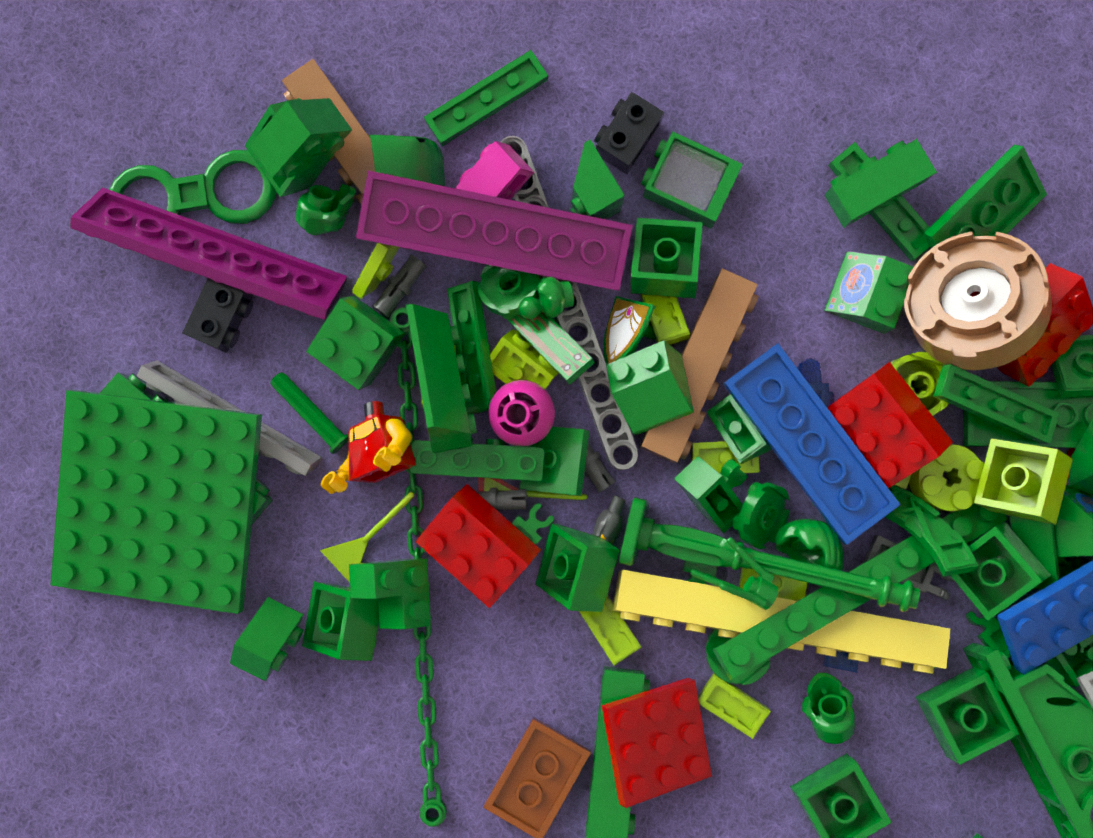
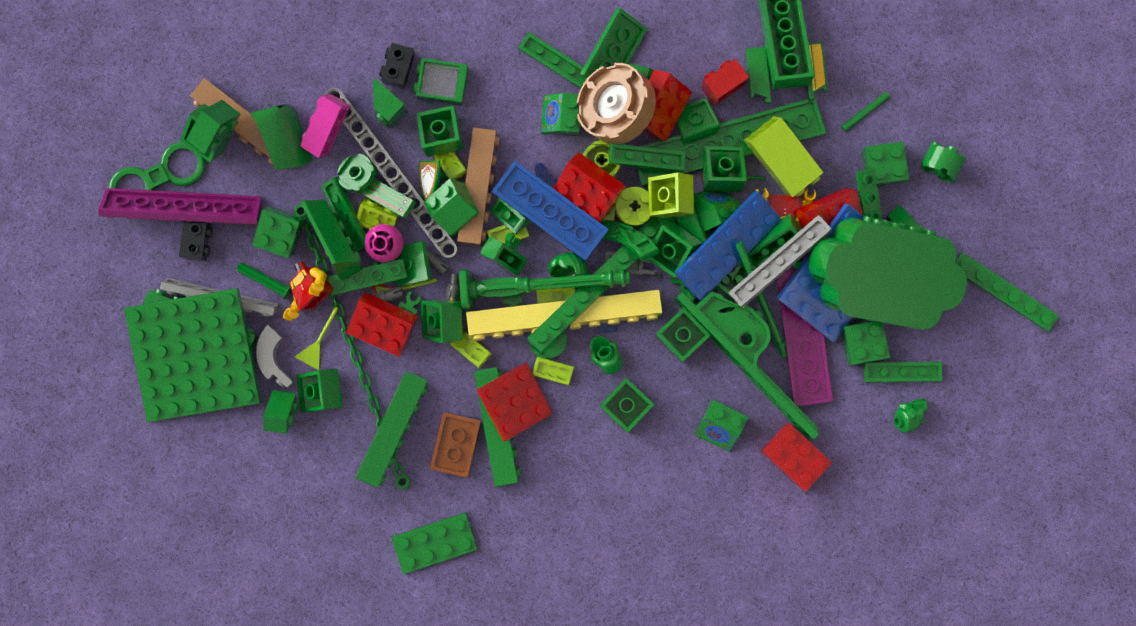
camera: 20 degrees left, 0 degrees up
(275, 540) = (266, 357): none -> light grey arch
(324, 209) = (237, 162): green head -> none
(376, 269) = (277, 186): lime plate -> none
(399, 286) = (293, 192): dark grey pin -> none
(400, 591) = (345, 360): green brick -> none
(438, 727) = (391, 429): none -> green brick
(486, 98) = (310, 69): green plate -> none
(493, 231) = (337, 146): magenta plate -> none
(552, 300) = (382, 174): green animal -> none
(756, 589) = (542, 299): green plant -> none
(762, 514) = (529, 262): green plate -> none
(879, 181) = (547, 52): green brick -> none

